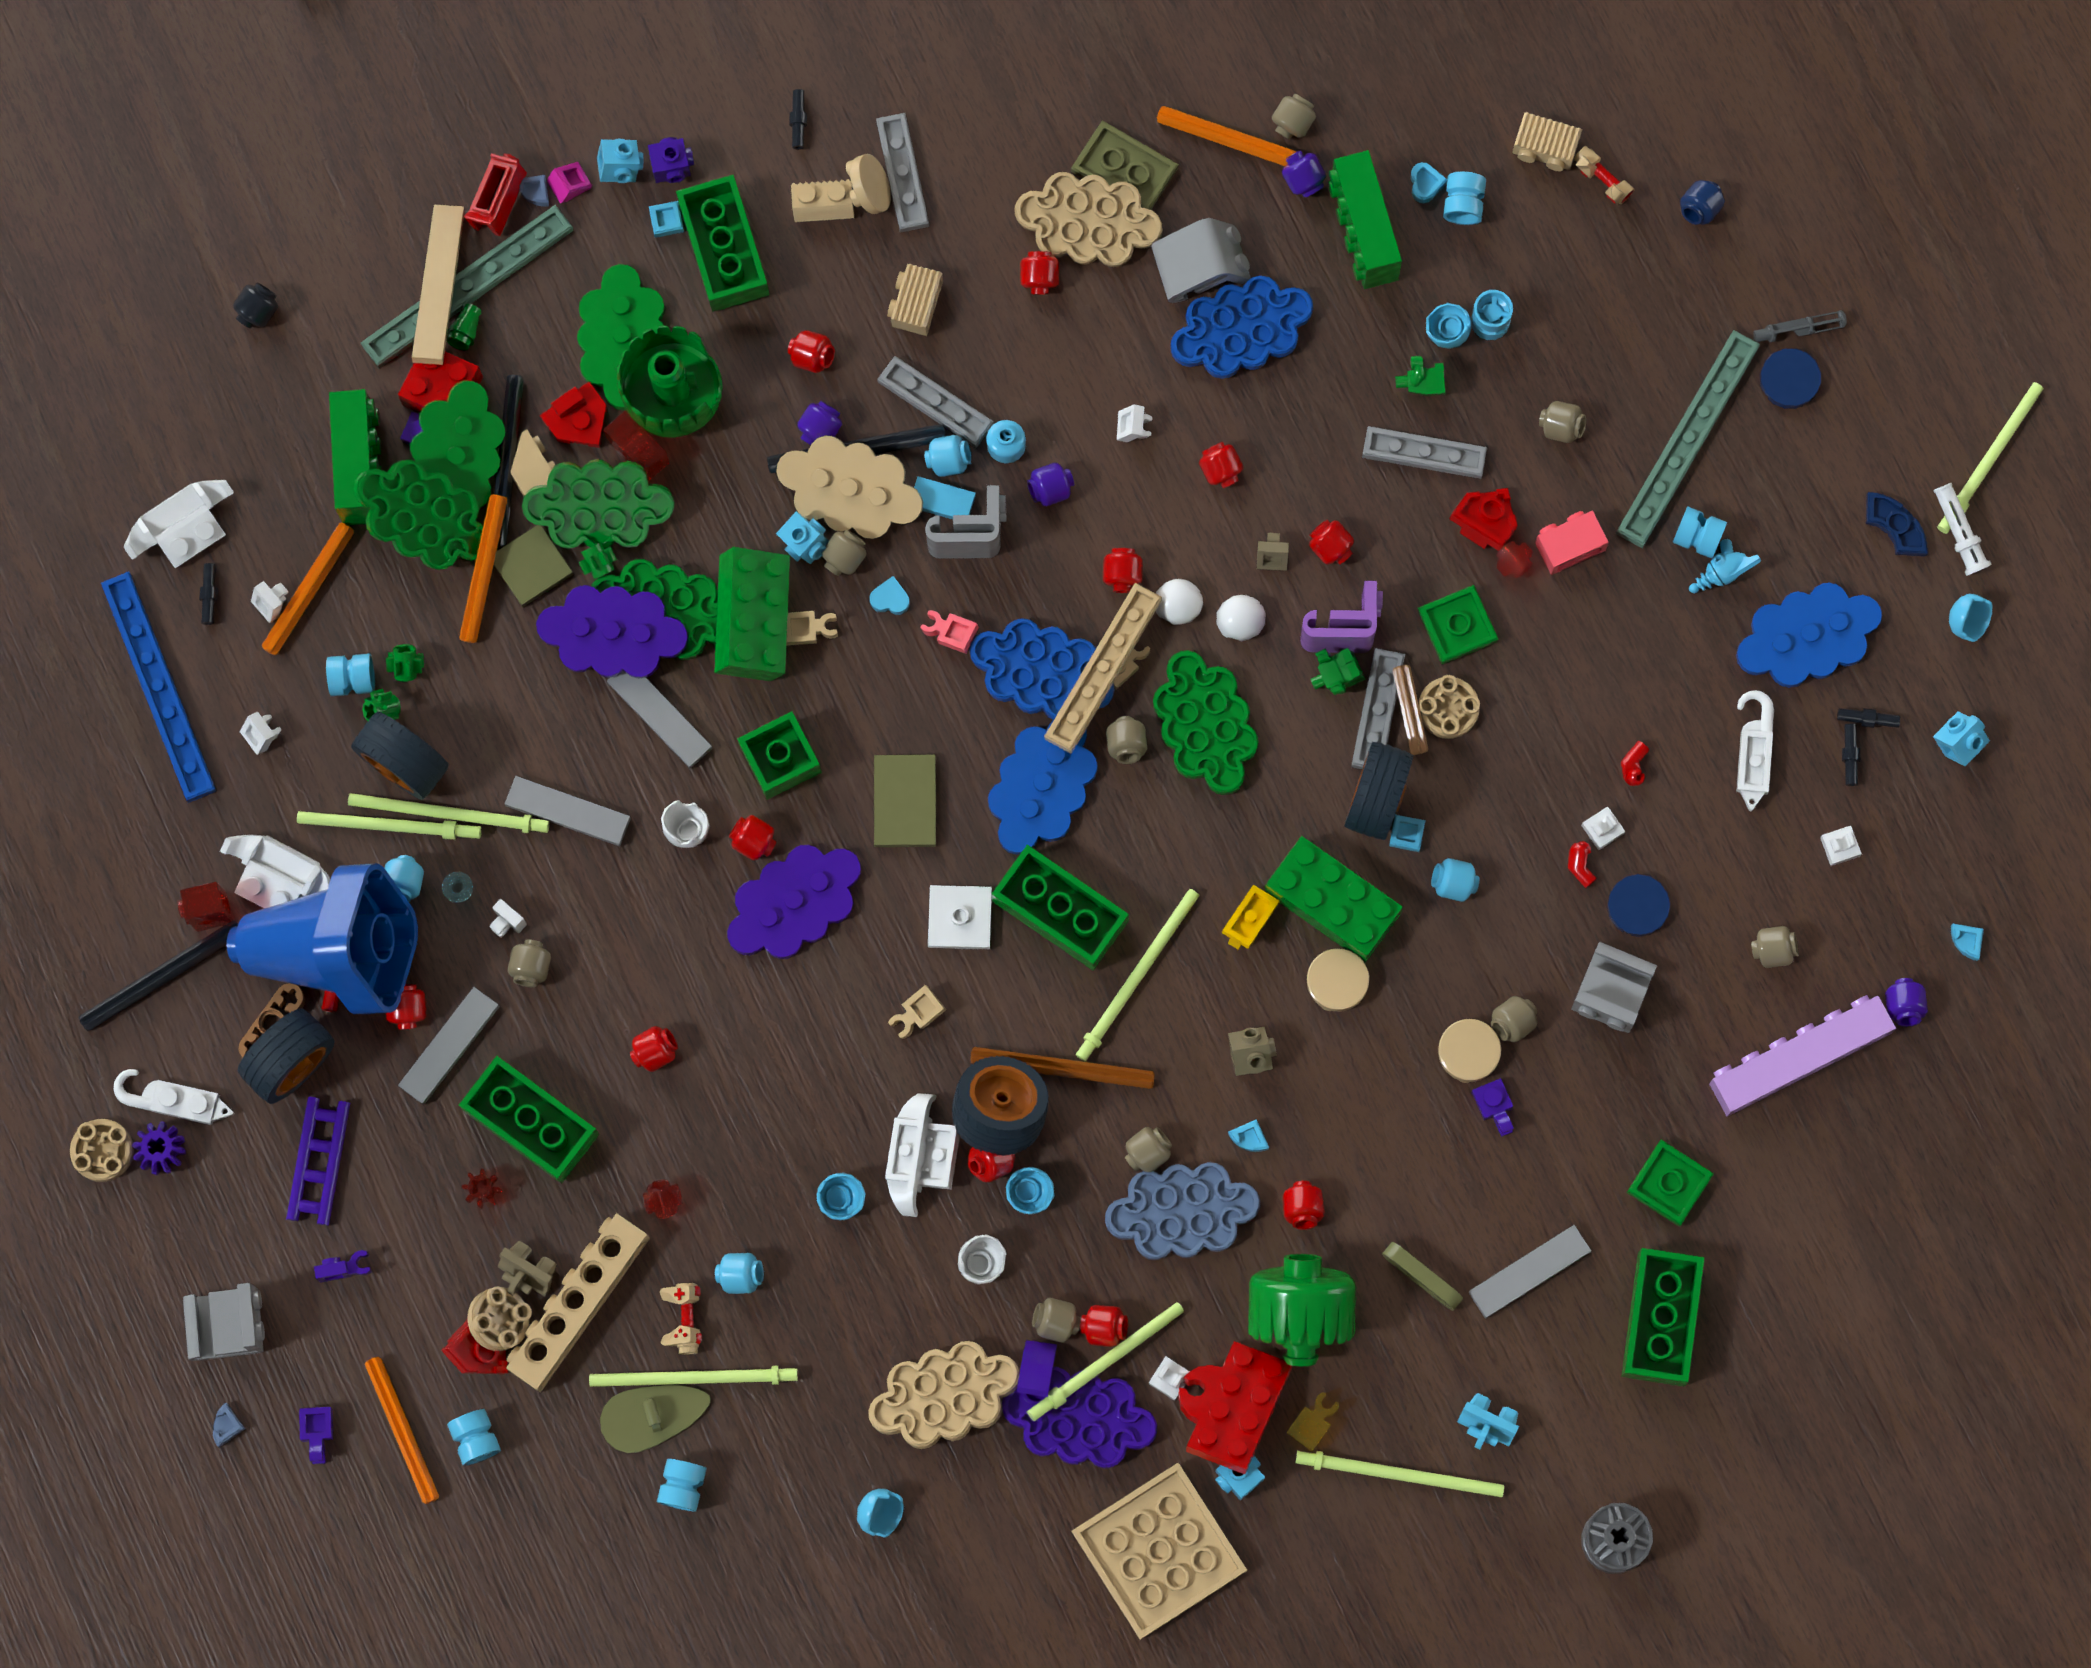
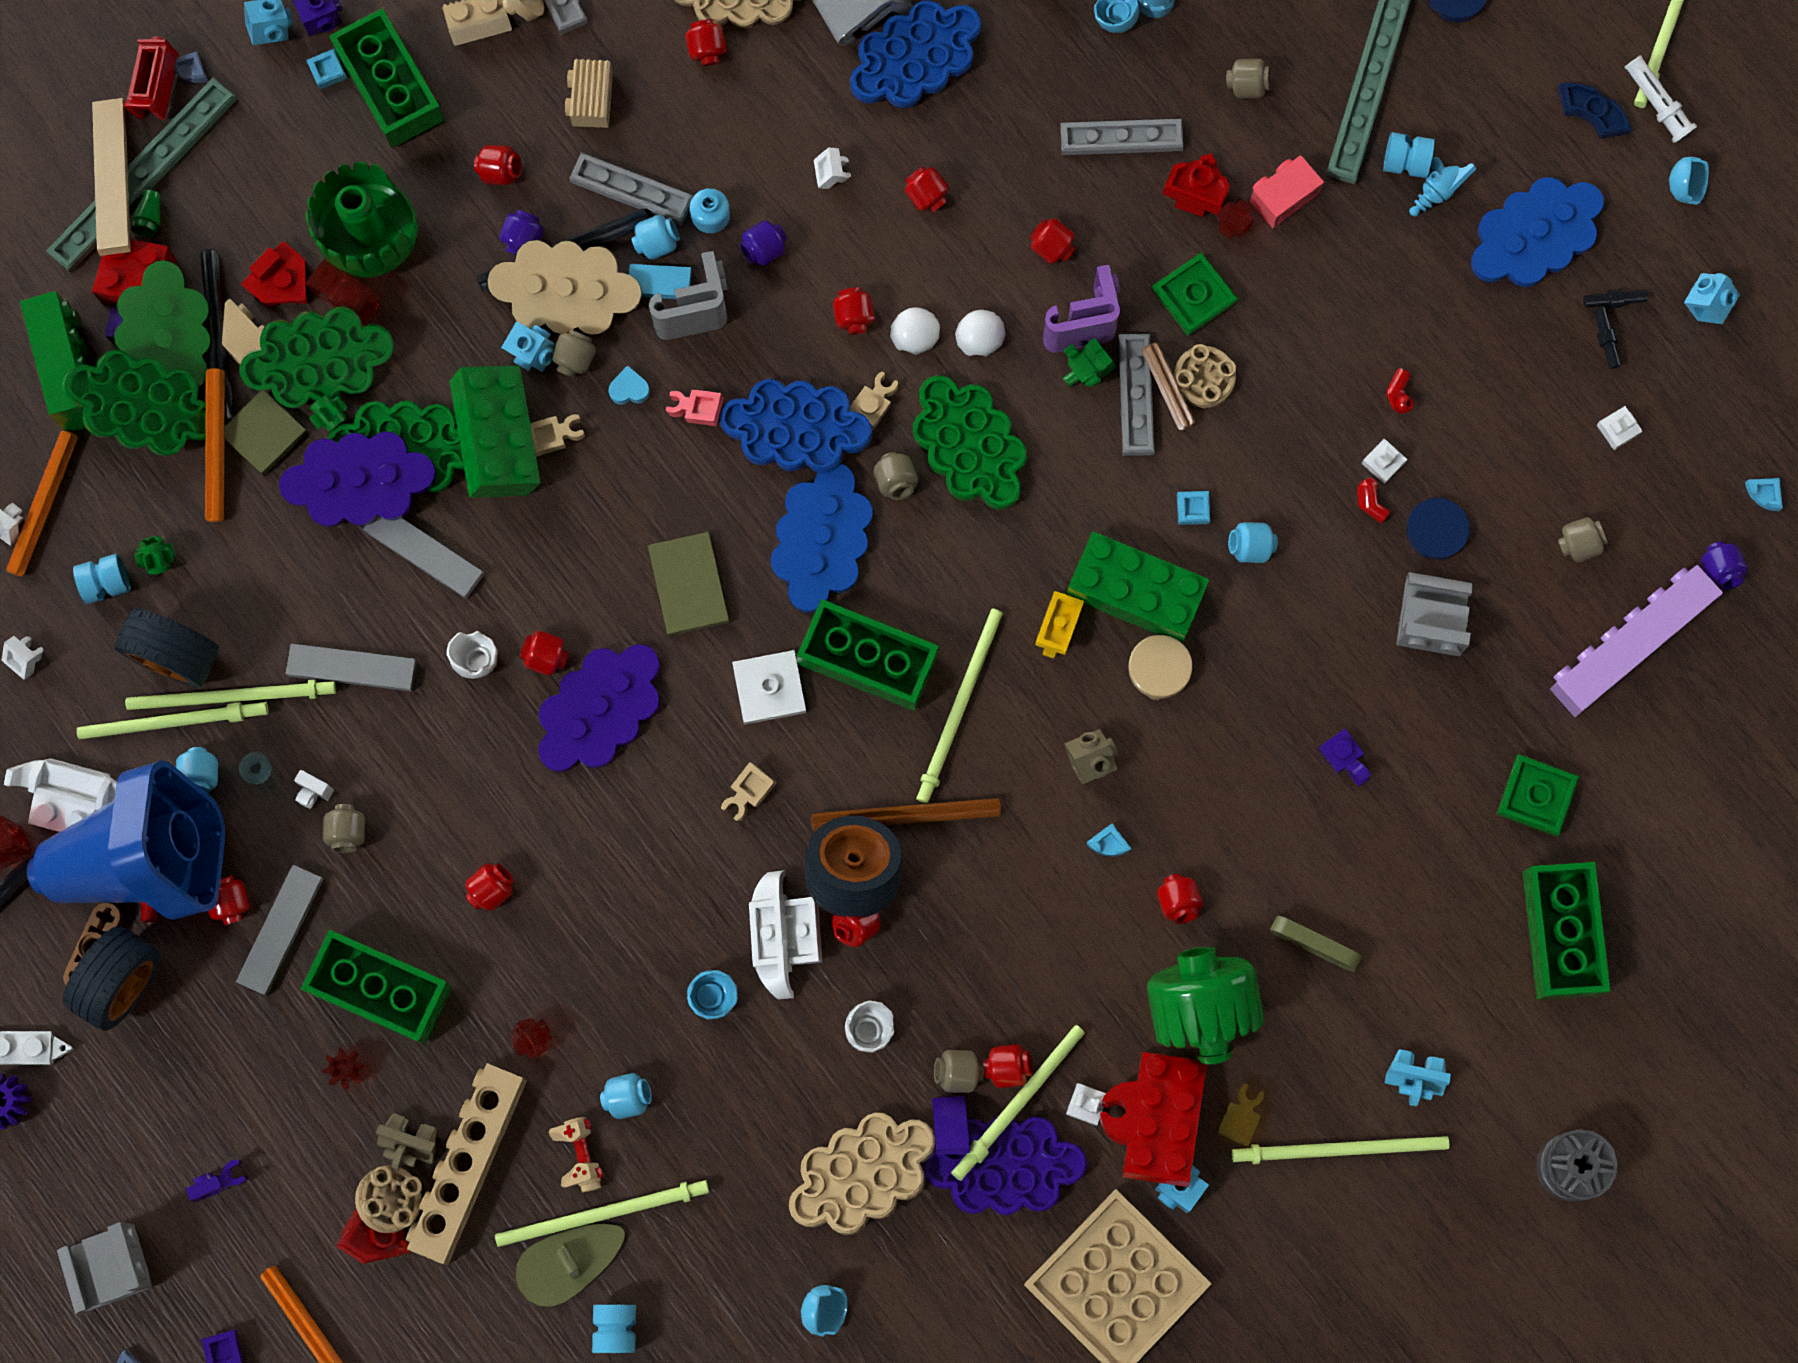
camera: 15 degrees left, 0 degrees up
(309, 1144) = (155, 1093): dark purple bar -> none
(381, 702) = (140, 598): green gear -> none
(473, 1435) = (389, 1328): medium azure wheel -> none
(568, 182) = (222, 53): dark pink slope -> none
(611, 321) = (290, 178): green plate -> none
(779, 755) = (552, 565): green brick -> none
(1030, 1190) = (902, 945): medium azure hair -> none
(1103, 668) = (856, 410): tan tile -> none
(1148, 1149) = (1011, 878): dark tan head -> none
(1182, 1211) = (1059, 932): sand blue plate -> none
(1273, 553) = (997, 264): dark tan tile -> none
(1379, 790) = (1159, 470): black wheel -> none
(1423, 380) = (1104, 66): green piece -> none
(1469, 1050) = (1307, 707): tan tile -> none
(1514, 1019) = (1344, 667): dark tan head -> none
(1529, 1271) = (1420, 915): light grey tile -> none
(1755, 751) = (1514, 354): white plate -> none

